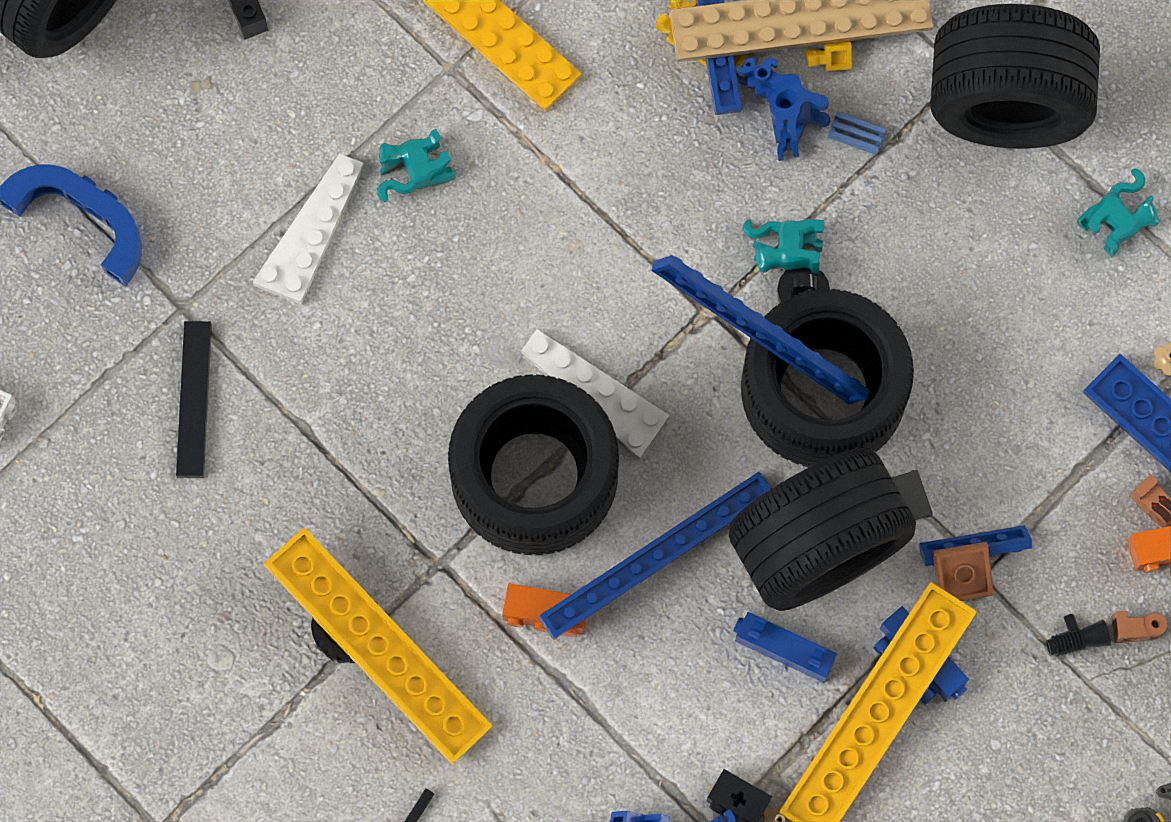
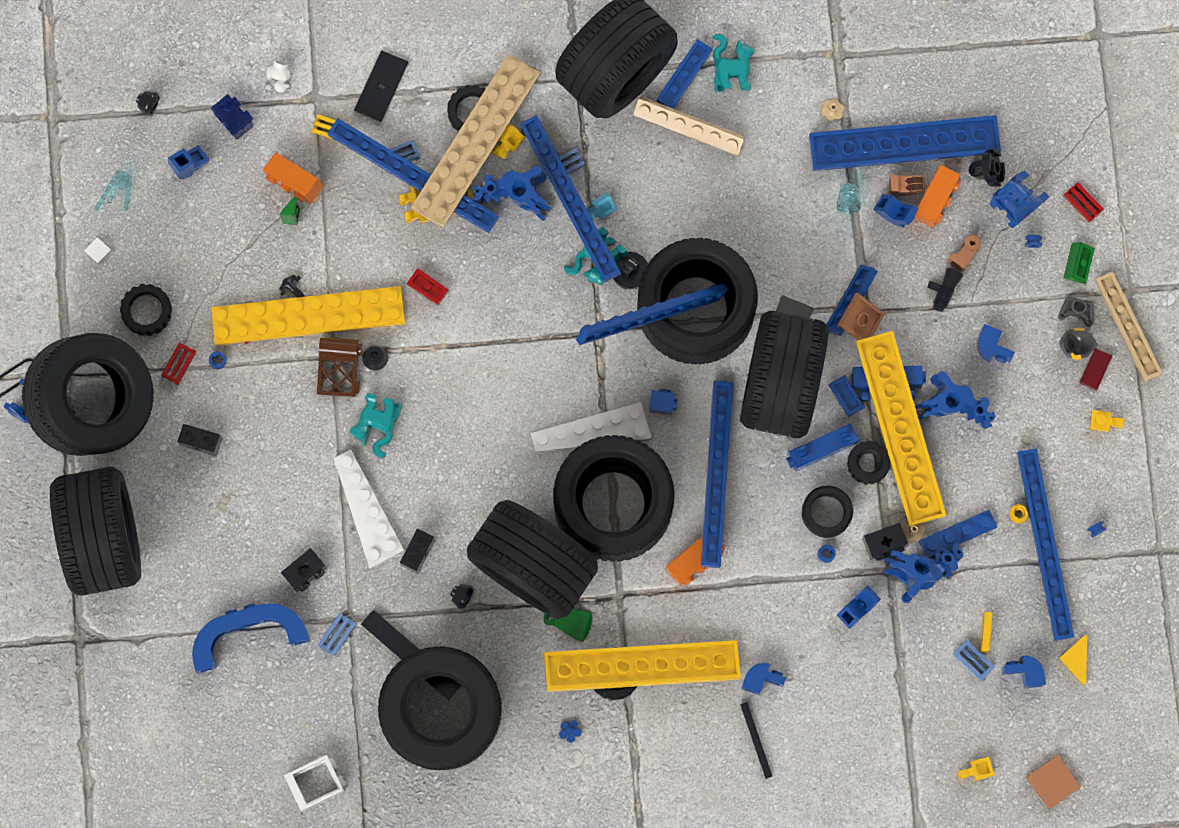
camera: 50 degrees left, 5 degrees up
(150, 297) = (327, 648): none -> medium blue tile
(182, 208) = (292, 572): none -> black brick
(193, 508) = (449, 752): none -> black tyre
(246, 629) = (569, 731): none -> blue plant
(300, 398) = (461, 595): none -> black cone
(309, 315) = (417, 551): none -> black brick
(366, 534) = (576, 624): none -> green piece
(389, 428) = (532, 559): none -> black tyre
(457, 66) = (340, 351): none -> reddish brown piece
(470, 780) = (758, 674): none -> blue brick
(483, 115) = (378, 361): none -> black cone
(603, 100) = (427, 287): none -> red plate
(680, 745) = (824, 559): none -> blue bush
(687, 436) = (662, 402): none -> blue brick
(731, 683) = (830, 491): none -> black tyre
(809, 689) = (871, 448): none -> black tyre
(823, 165) = (570, 199): none -> blue plate
(845, 205) = (602, 207): none -> medium azure plate
(865, 627) = (846, 396): none -> blue plate
(959, 742) = (955, 398): none -> blue animal
(1014, 224) = (689, 125): none -> tan plate
(1056, 735) = (988, 346): none -> blue brick
(1065, 175) = (684, 74): none -> blue plate
(1085, 452) = (849, 198): none -> clear light blue piece
(1116, 512) = (895, 211): none -> blue brick

